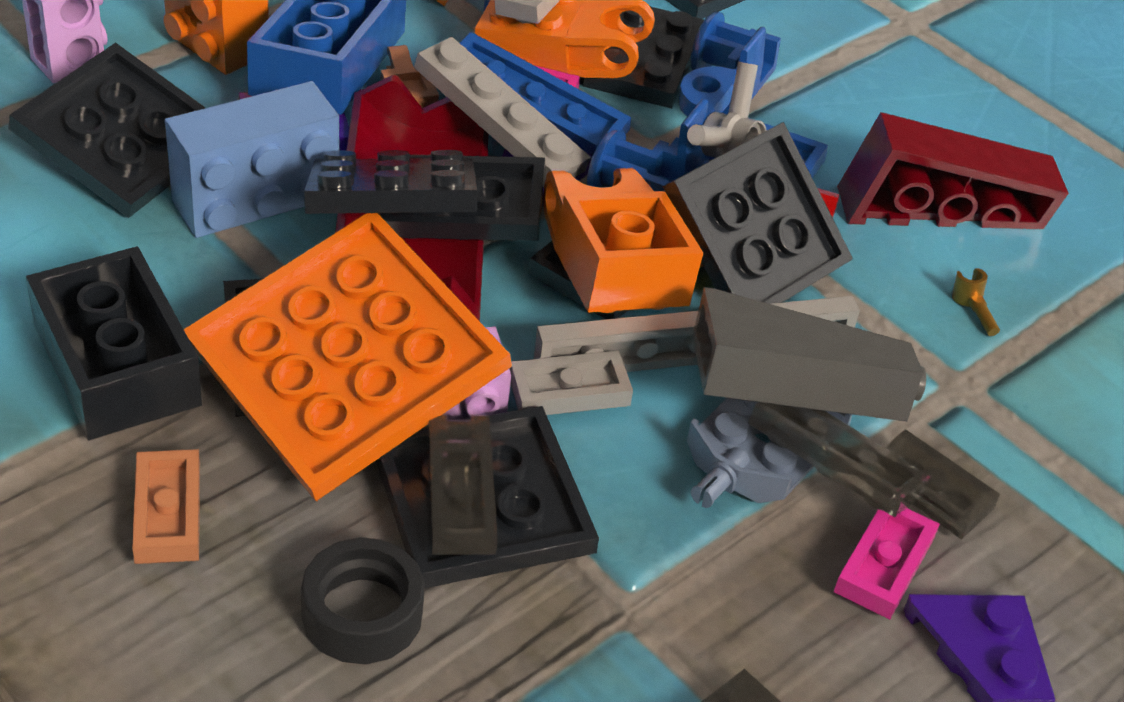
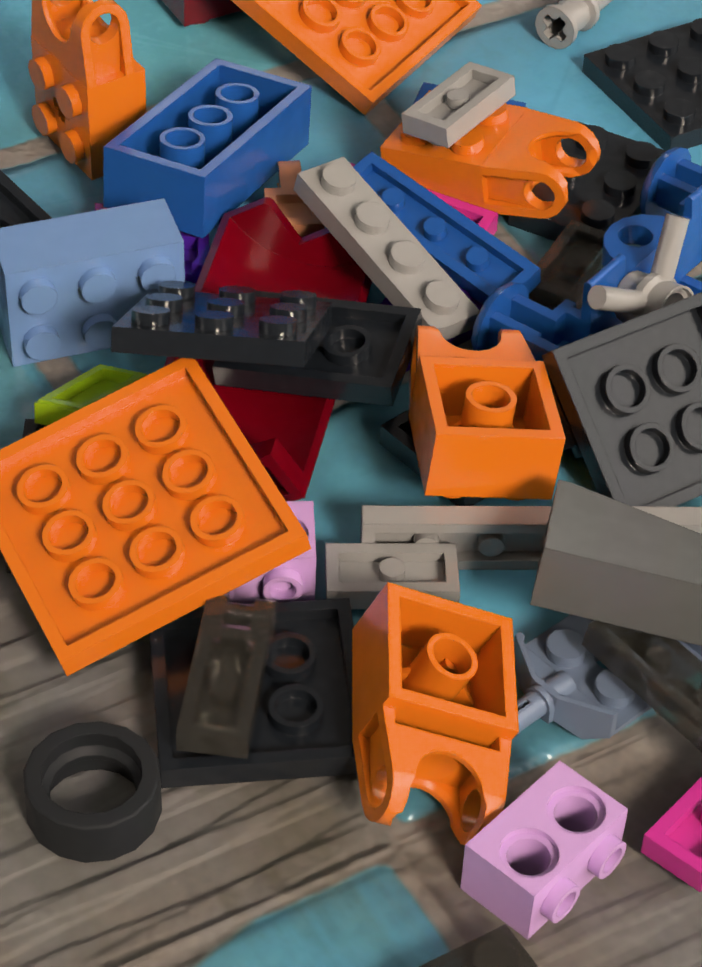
camera: 15 degrees right, 0 degrees up
(273, 253) = (82, 391): none -> lime tile
(643, 493) = (433, 707): none -> orange brick
(652, 112) = (568, 265): none -> clear smoke plate
(760, 600) = (557, 835): none -> lavender brick

